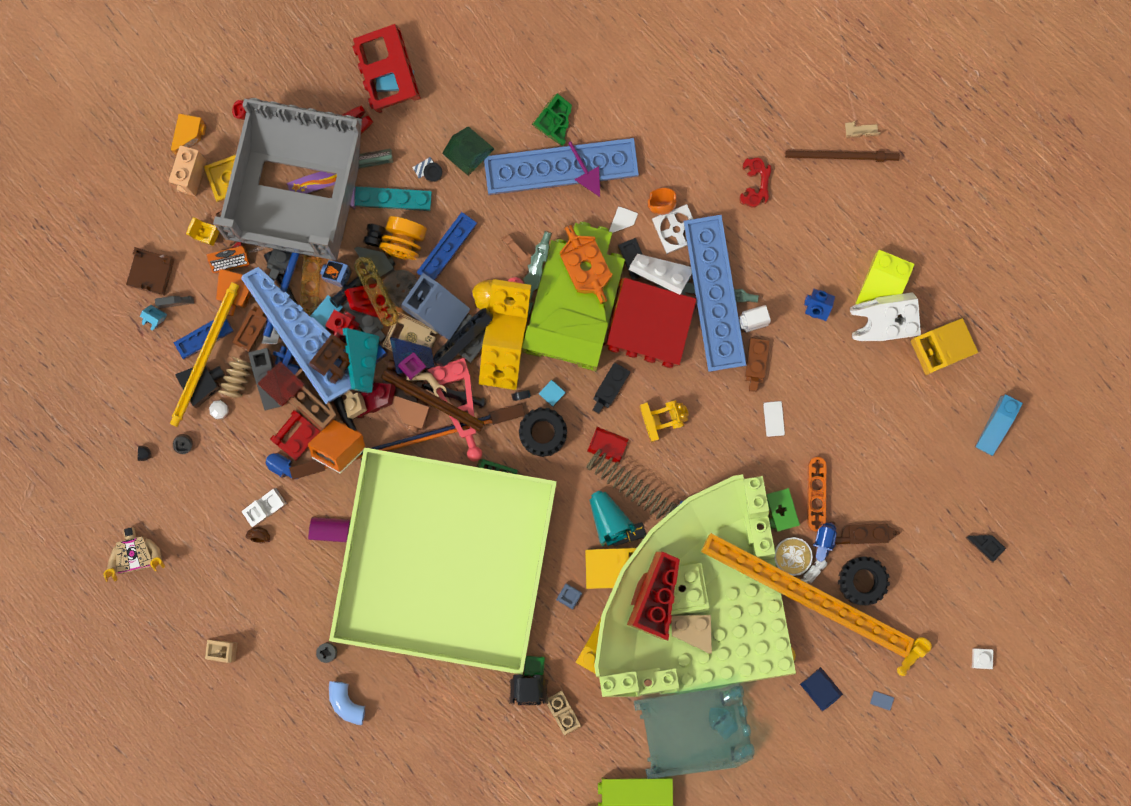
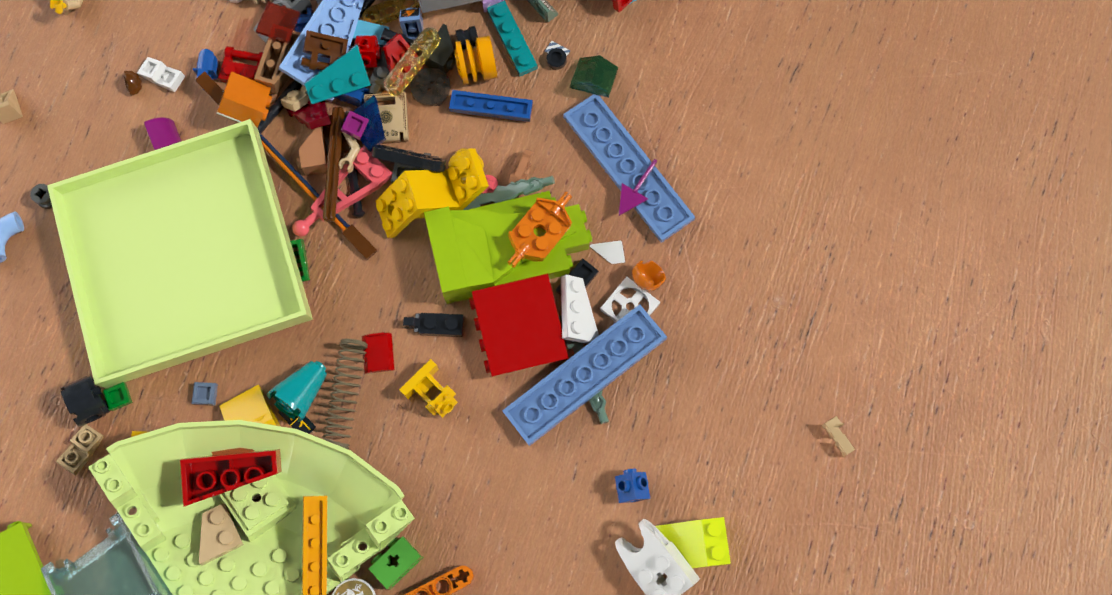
camera: 65 degrees right, 10 degrees down
(435, 306) = (426, 119): sand blue slope -> none
(521, 395) = (384, 245): black tile -> none
(552, 393) = (401, 272): medium azure tile -> none
(554, 119) = (671, 137): green slope -> none
(555, 420) = (344, 269): black tyre -> none
(754, 319) = (579, 426): white brick -> none
(756, 166) = (704, 365): red helmet -> none
(756, 362) = (538, 455): dark orange hinge -> none
(774, 419) = (490, 505): white sticker -> none
(879, 156) = (822, 468): reddish brown bar -> none

